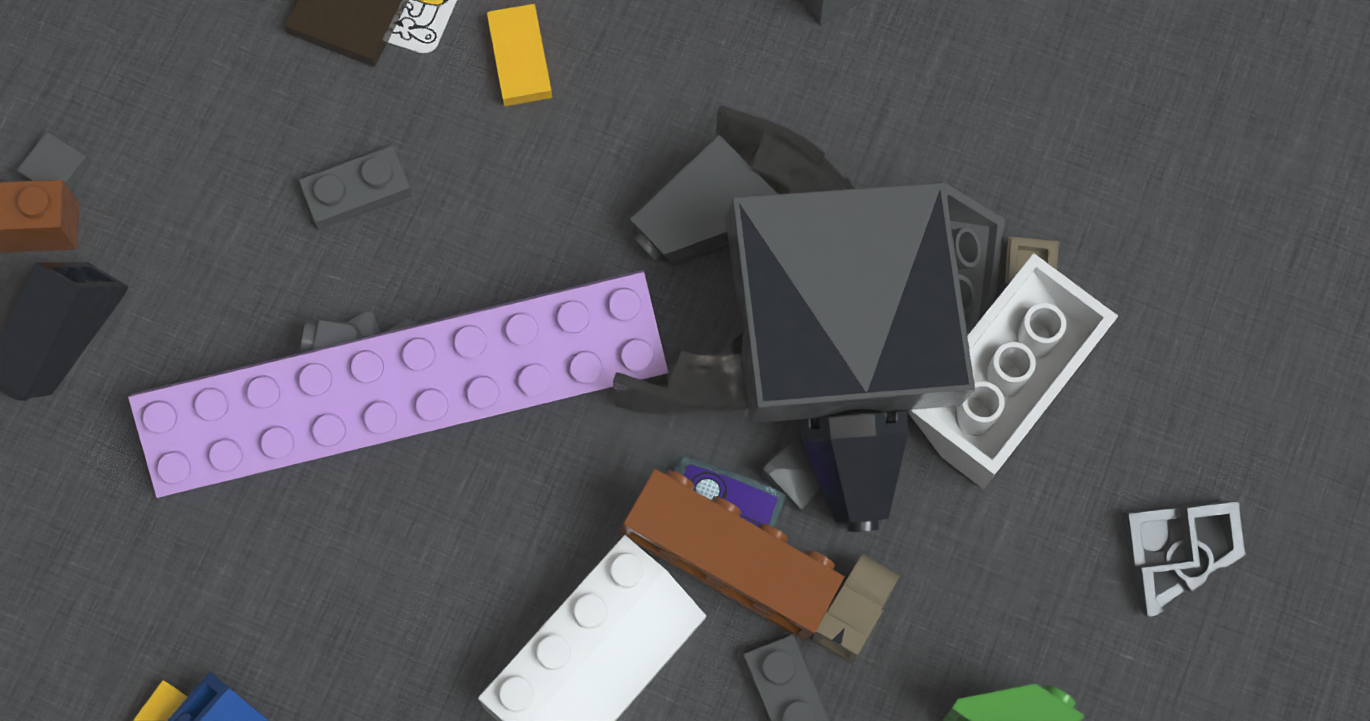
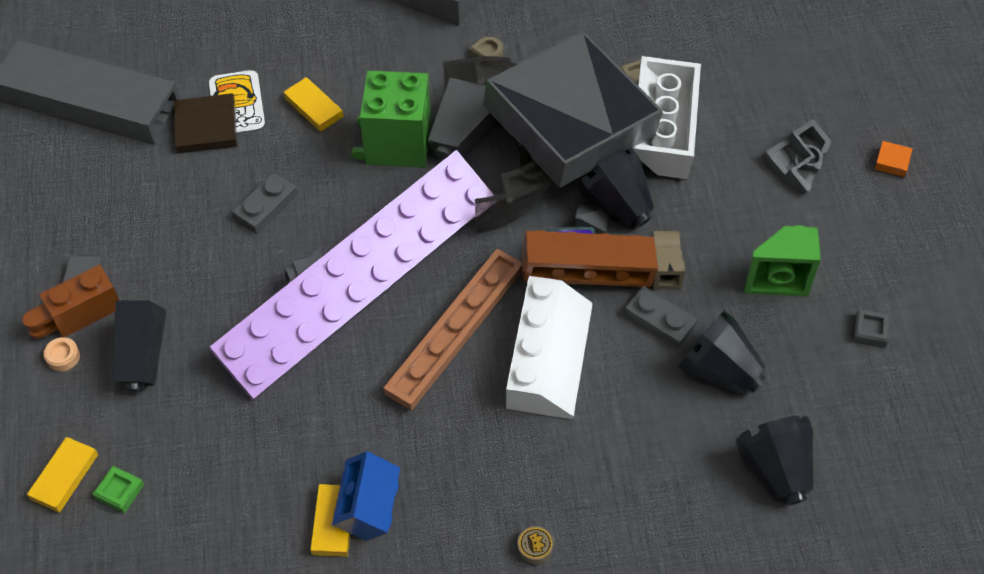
camera: 30 degrees left, 15 degrees down
(485, 546) = (453, 330): none -> nougat plate
(601, 159) = (395, 119): none -> bright green container
(830, 97) = (487, 47): none -> dark tan tile
(1327, 635) = (893, 158): none -> orange tile

